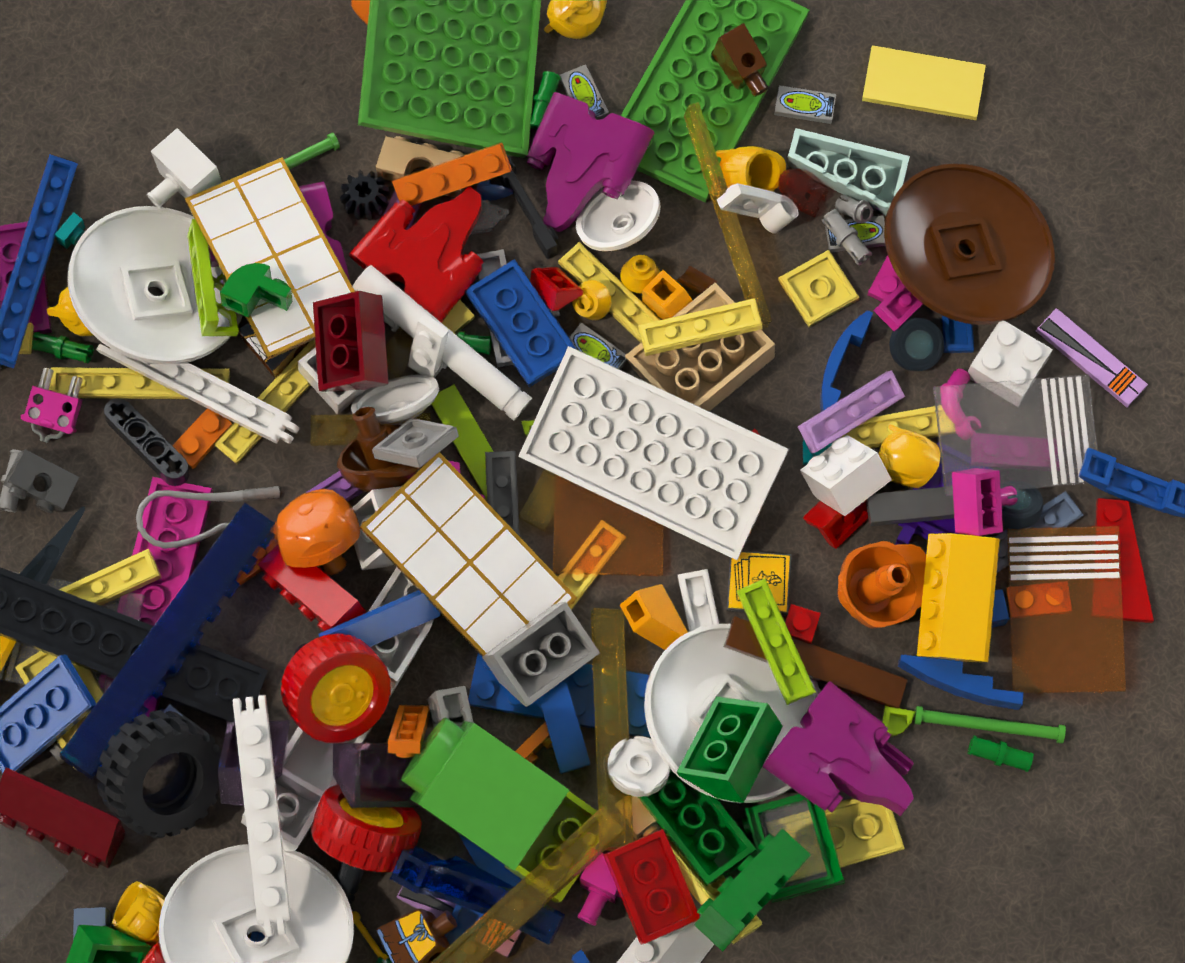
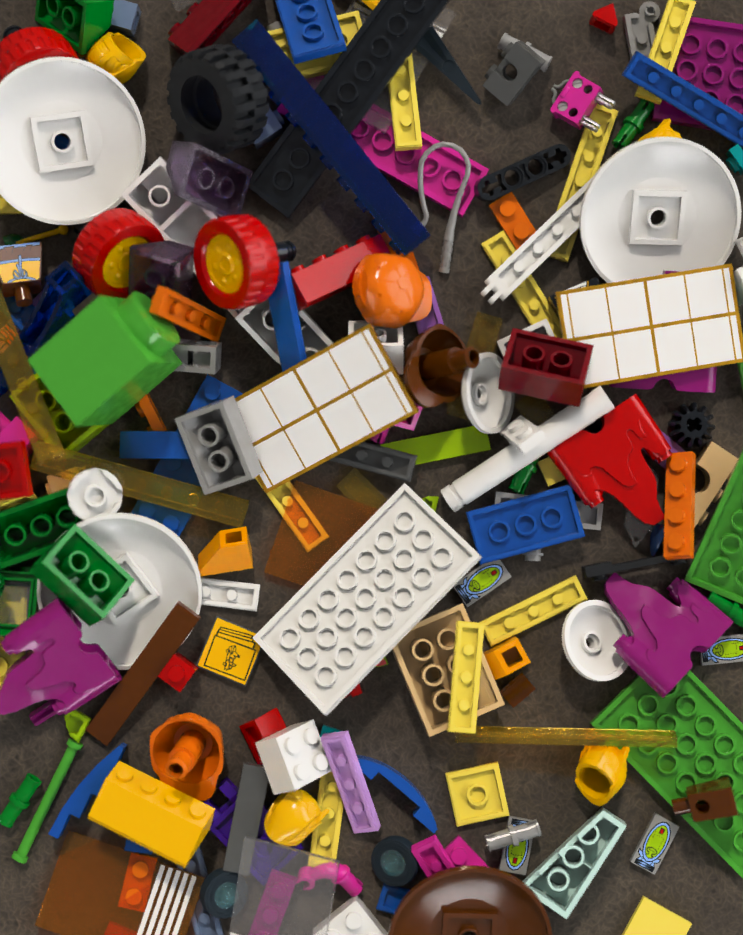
camera: 105 degrees right, 15 degrees up
(204, 287) = (641, 257): lime fence -> none
(251, 284) = (626, 293): green brick -> none
(262, 814) = (148, 169): white hinge -> none
(415, 442) = (431, 394): light grey tile -> none
(554, 287) = (549, 563): red slope -> none
(594, 302) = (527, 592): yellow cone -> none
(638, 273) = (539, 642): yellow cone -> none
(771, 208) = (560, 777): white plate -> none
(775, 641) = (165, 645): lime tile -> none
(795, 184) = (576, 806): clear red plate -> none
(858, 210) = (534, 855): light grey pin -> none
(979, 501) = (225, 862): dark pink brick -> none

